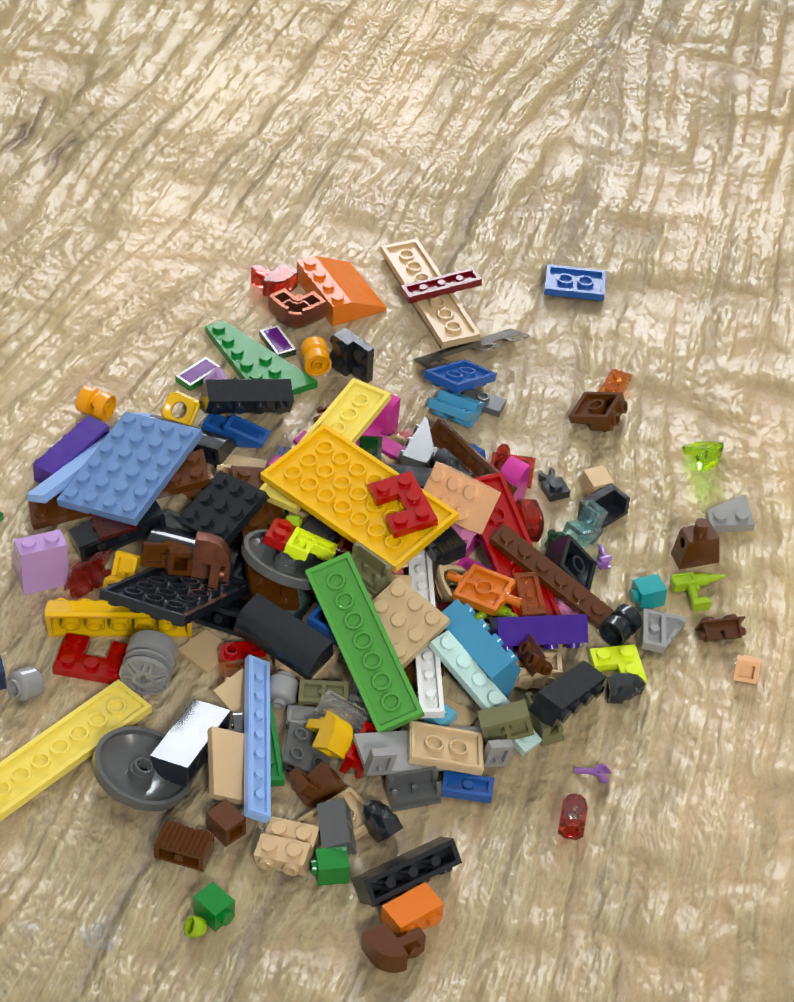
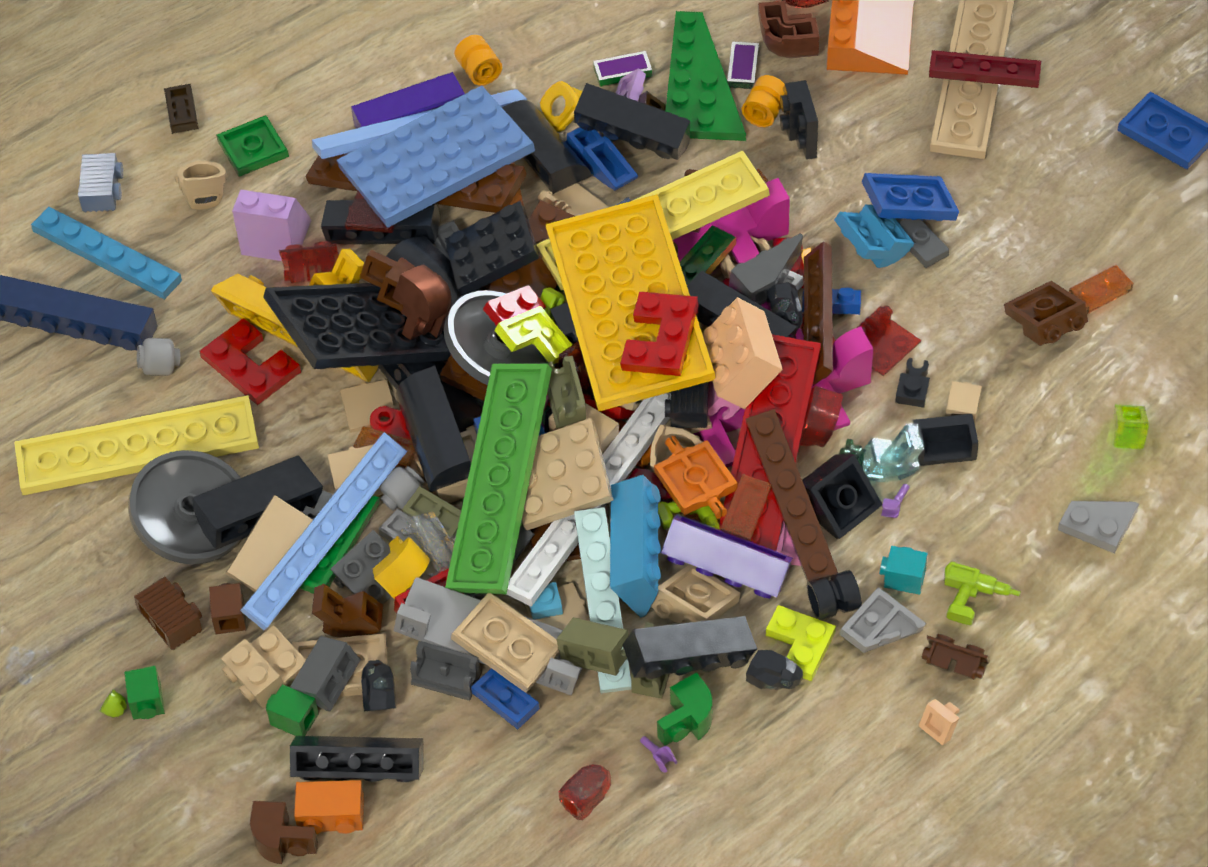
camera: 40 degrees right, 10 degrees up
(149, 662) = (285, 391): light grey wheel -> none
(486, 340) = (1016, 164): black piece -> none
(533, 657) = (688, 587): reddish brown hinge -> none
(594, 733) = (692, 711): none -> green brick
(696, 545) = (1012, 541): reddish brown torso -> none

